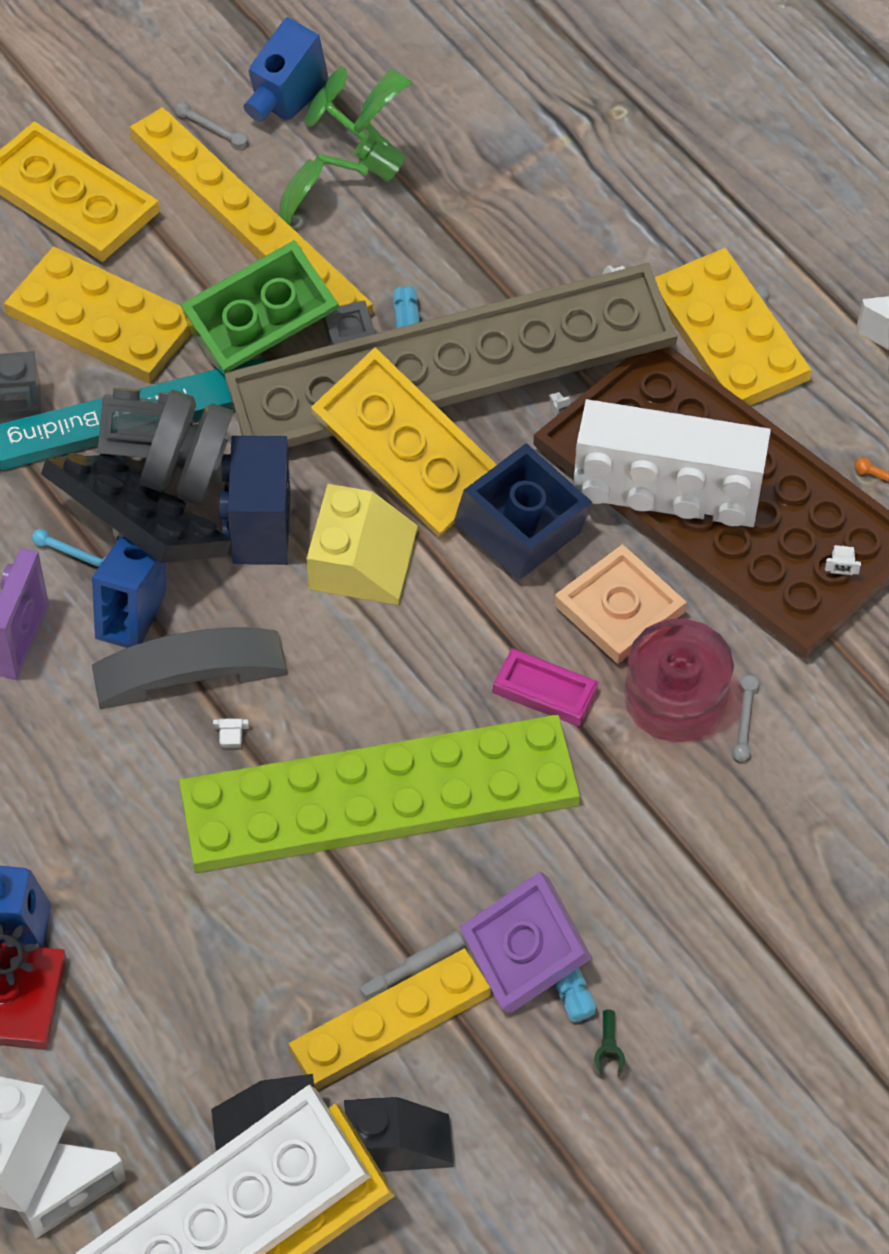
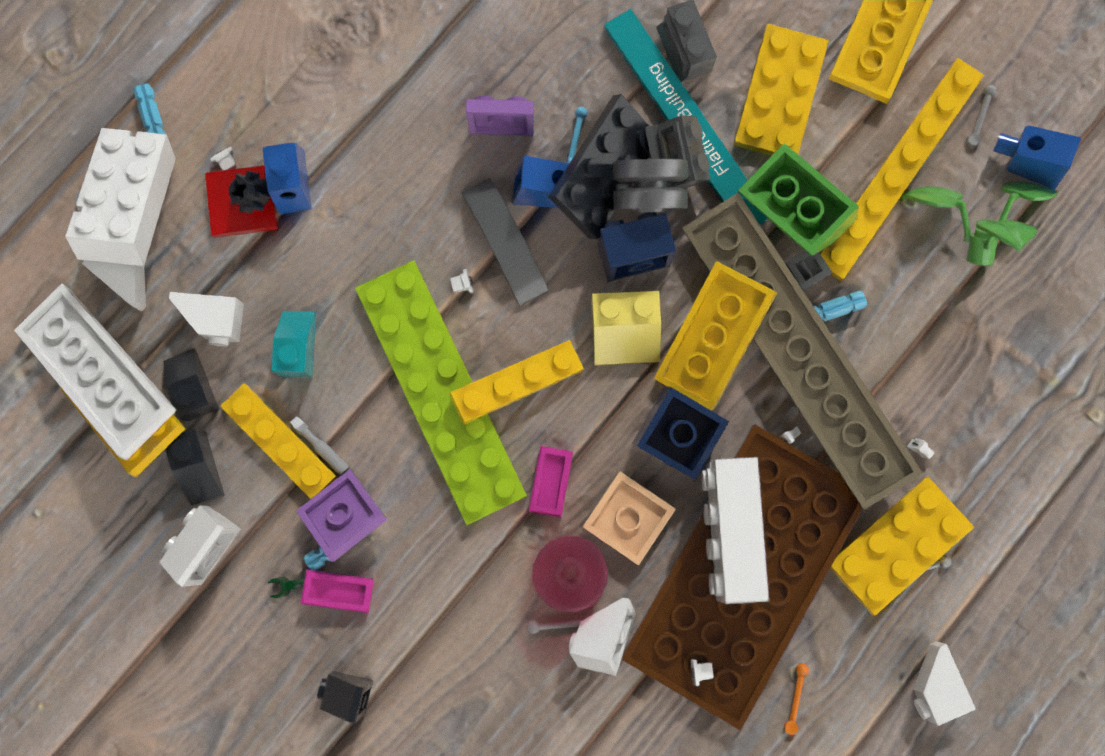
camera: 75 degrees right, 25 degrees up
(171, 1066) = (211, 316): none -> white slope
(254, 958) = (294, 344): none -> teal slope
(397, 689) = (516, 382): none -> yellow plate
(520, 1143) = (198, 546): none -> white slope
(632, 984) = (337, 591): none -> dark pink tile
(777, 661) = (603, 638): none -> white slope
(788, 986) = (345, 695): none -> black slope

